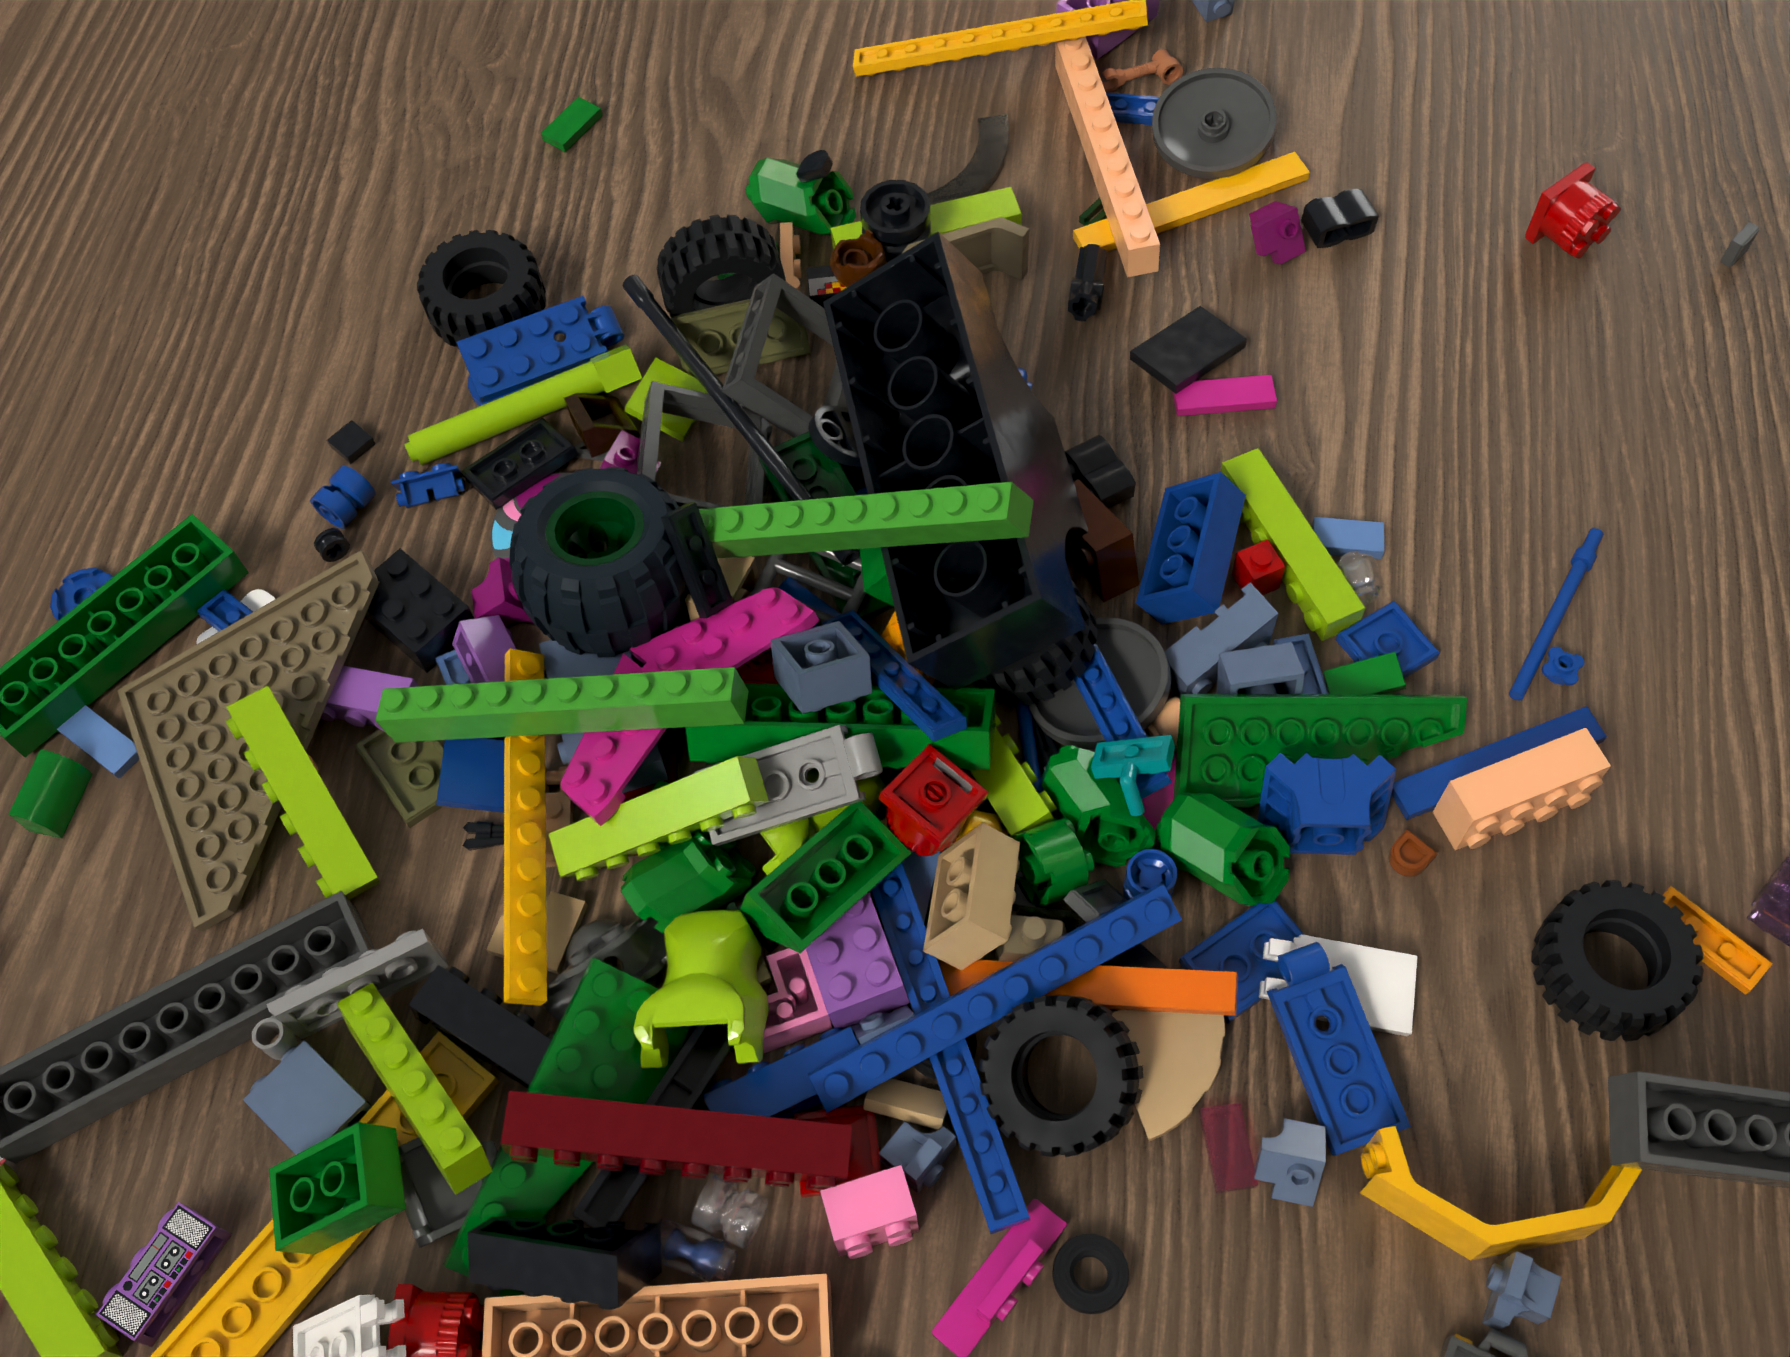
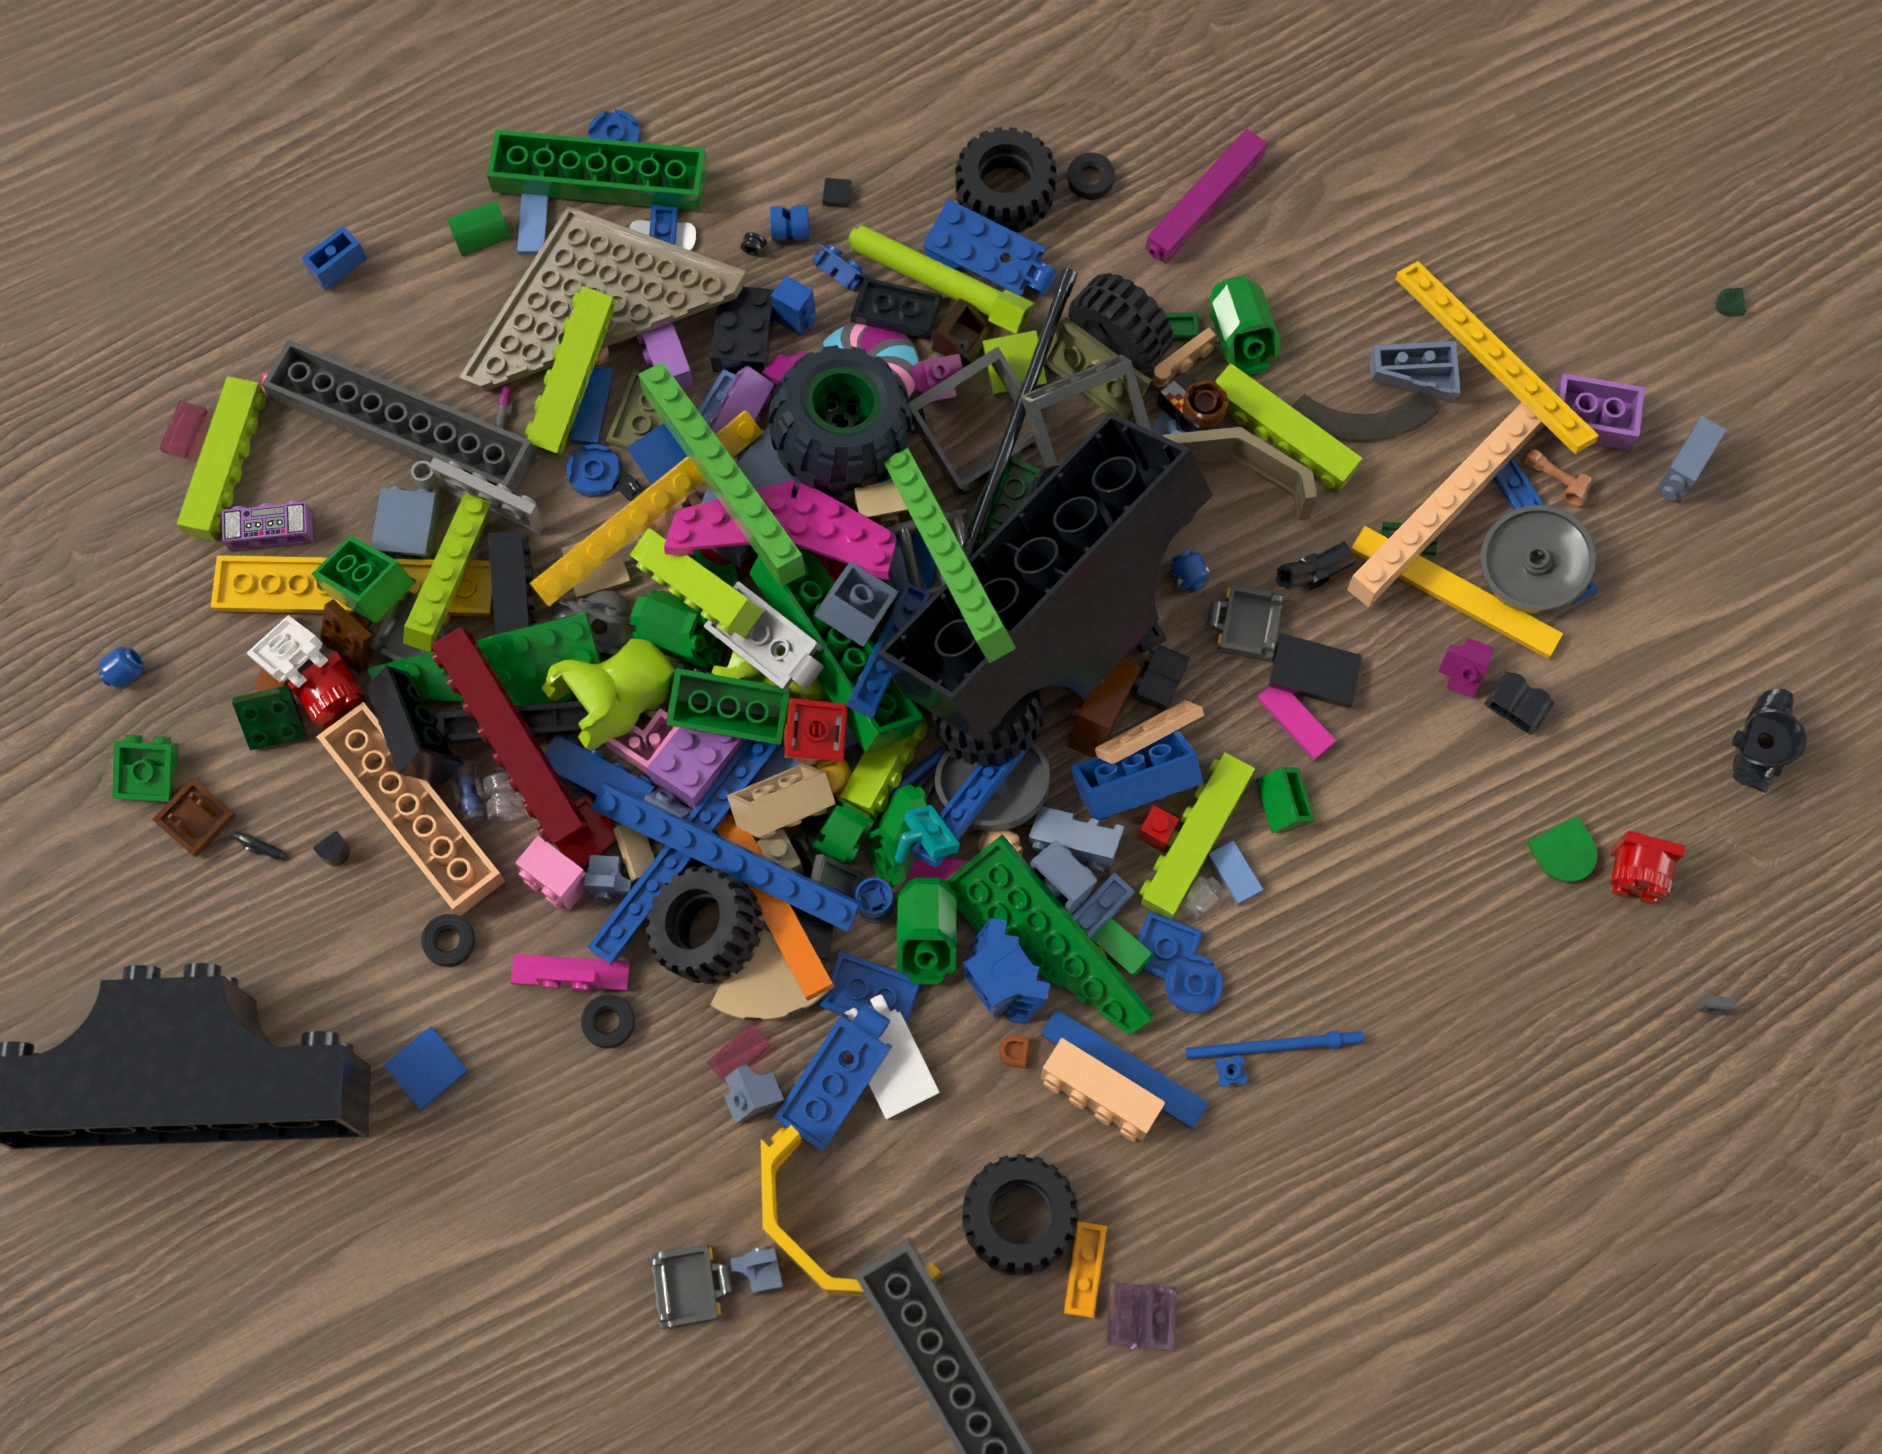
camera: 50 degrees right, 10 degrees up
(270, 903) = (504, 408): none -> dark grey piece
(368, 824) = (593, 408): none -> blue tile
(382, 1261) = (347, 635): none -> reddish brown plate
(427, 859) = (593, 470): none -> blue tile
(435, 541) = (794, 305): none -> blue brick
(538, 217) = (1086, 190): none -> black tyre
(571, 124) = (1199, 122): green tile -> none
(648, 158) = (1205, 196): none -> magenta brick
(697, 560) = (871, 476): black tile -> none
(815, 166) = (1261, 317): black tile -> none
(896, 215) = (1259, 402): black wheel -> none
(958, 101) = (1418, 367): none -> sand blue wedge
(1096, 373) = (1249, 622): none -> dark grey piece
(1152, 514) = (1149, 732): none -> light nougat tile
(1302, 450) = (1285, 799): none -> green brick
(1446, 641) = (1193, 984): none -> blue tile
(1509, 270) = (1565, 851): none -> green tile
(1511, 65) = (1772, 717): none -> black piece

